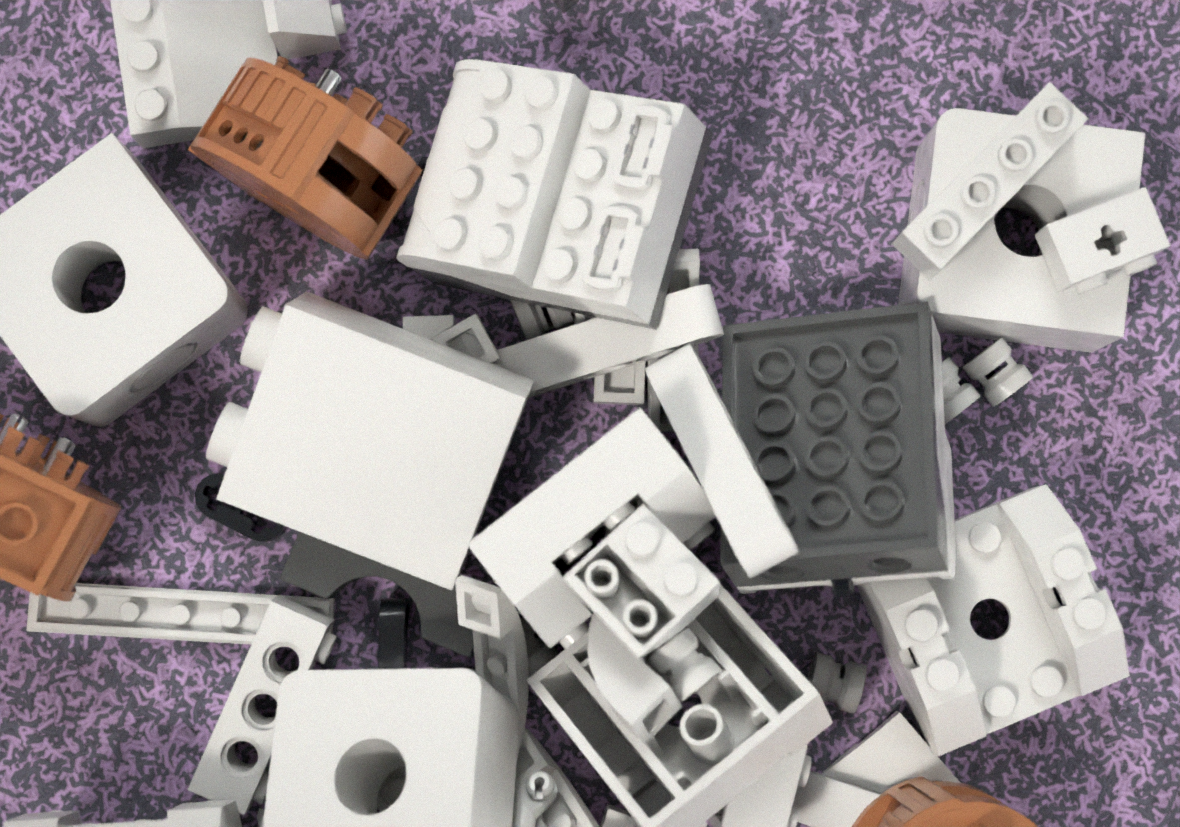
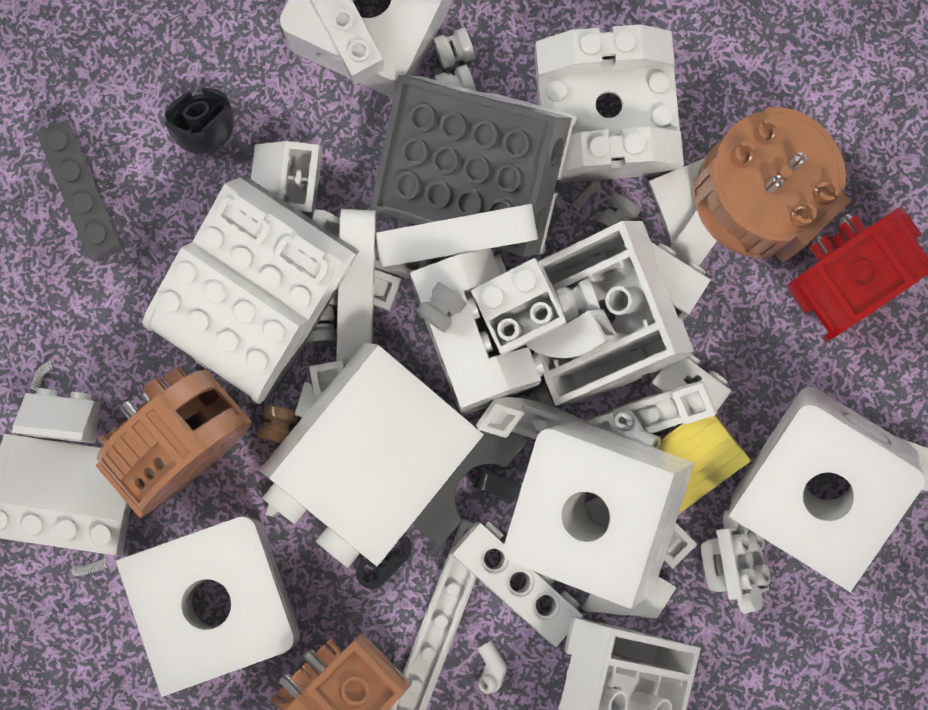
camera: 70 degrees left, 0 degrees up
(109, 106) = (80, 569): none -> white leg
(135, 711) = (494, 669): none -> white arm
(384, 296) = (276, 423): none -> medium nougat wheel
(600, 468) = (441, 307): none -> light grey wheel
(738, 200) = (289, 172): none -> white slope
(773, 53) = (200, 121): none -> black cylinder
(851, 628) = (591, 190): none -> white leg

